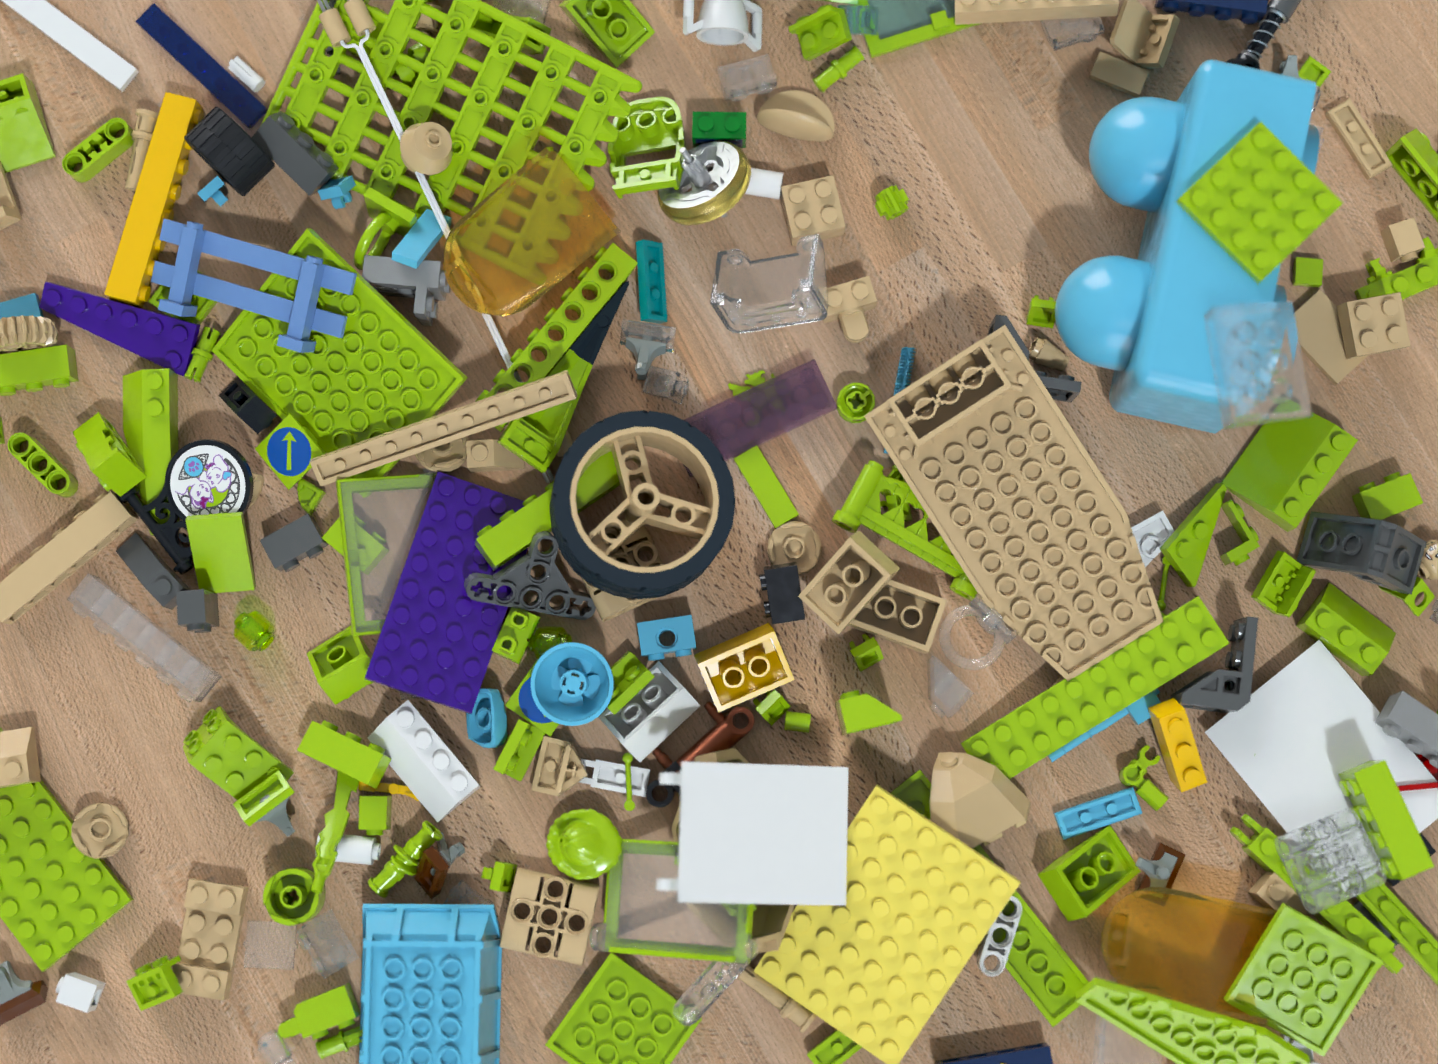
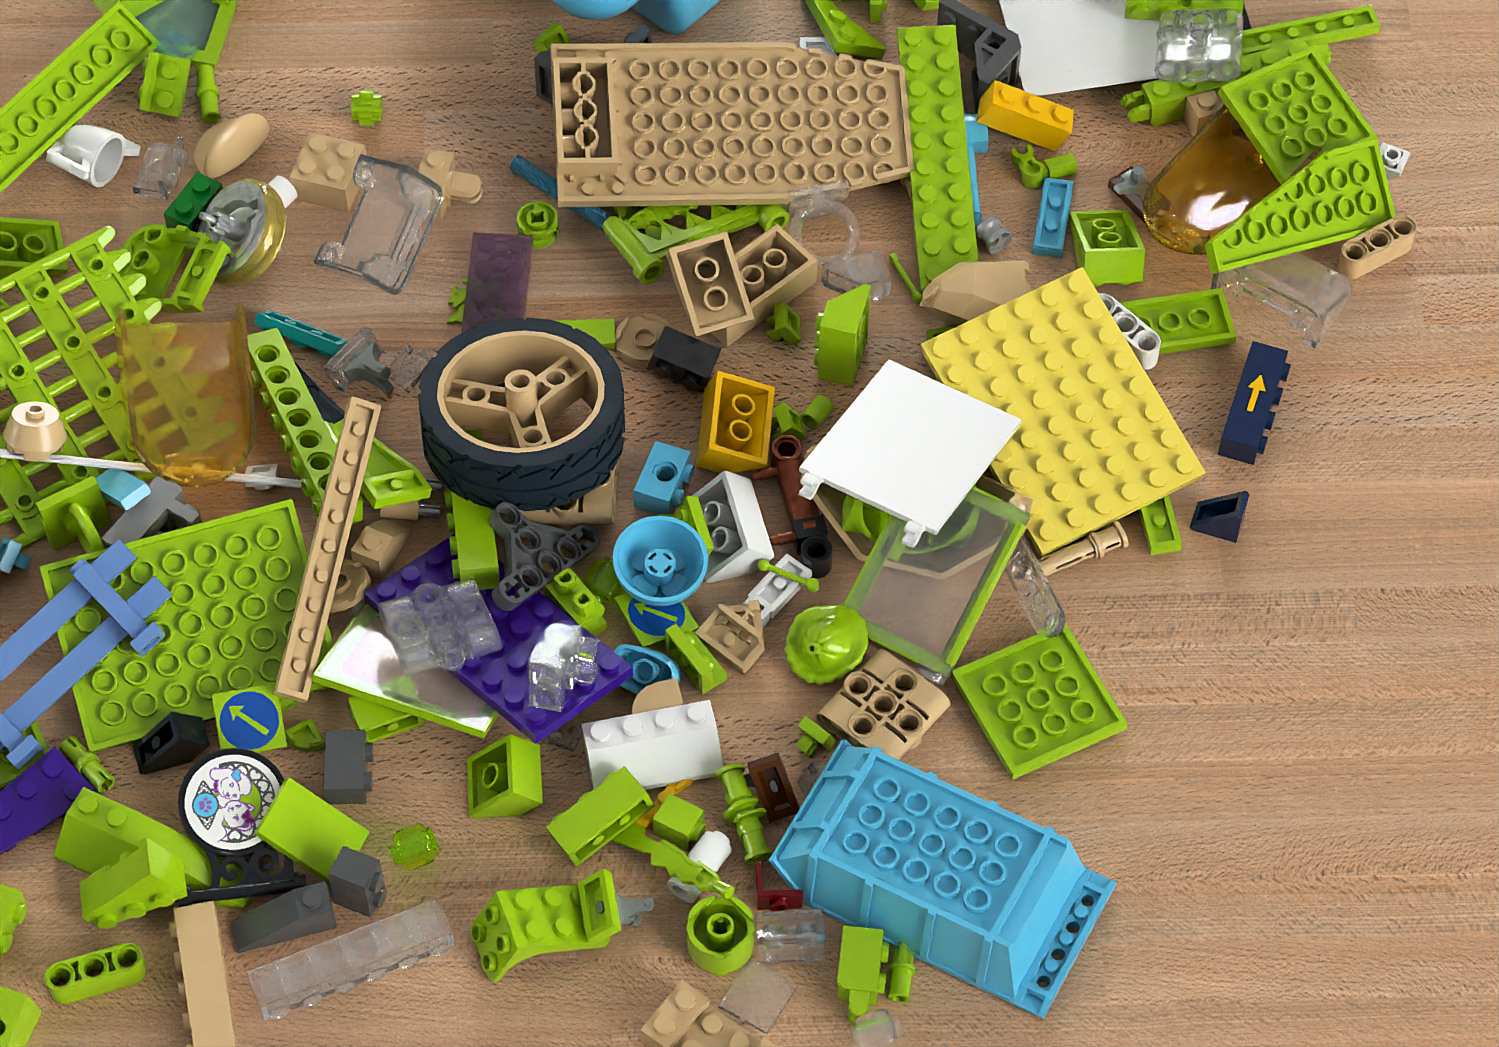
camera: 65 degrees left, 25 degrees down
(346, 920) = (776, 899): none -> dark red bracket
(412, 519) = (439, 627): none -> clear connector
(428, 664) = (559, 664): none -> clear hips
(463, 744) = (658, 696): none -> tan brick
(509, 329) = (269, 470): none -> white plate
(956, 741) = (916, 295): none -> lime hinge
(1047, 775) = (993, 234): none -> light grey wheel

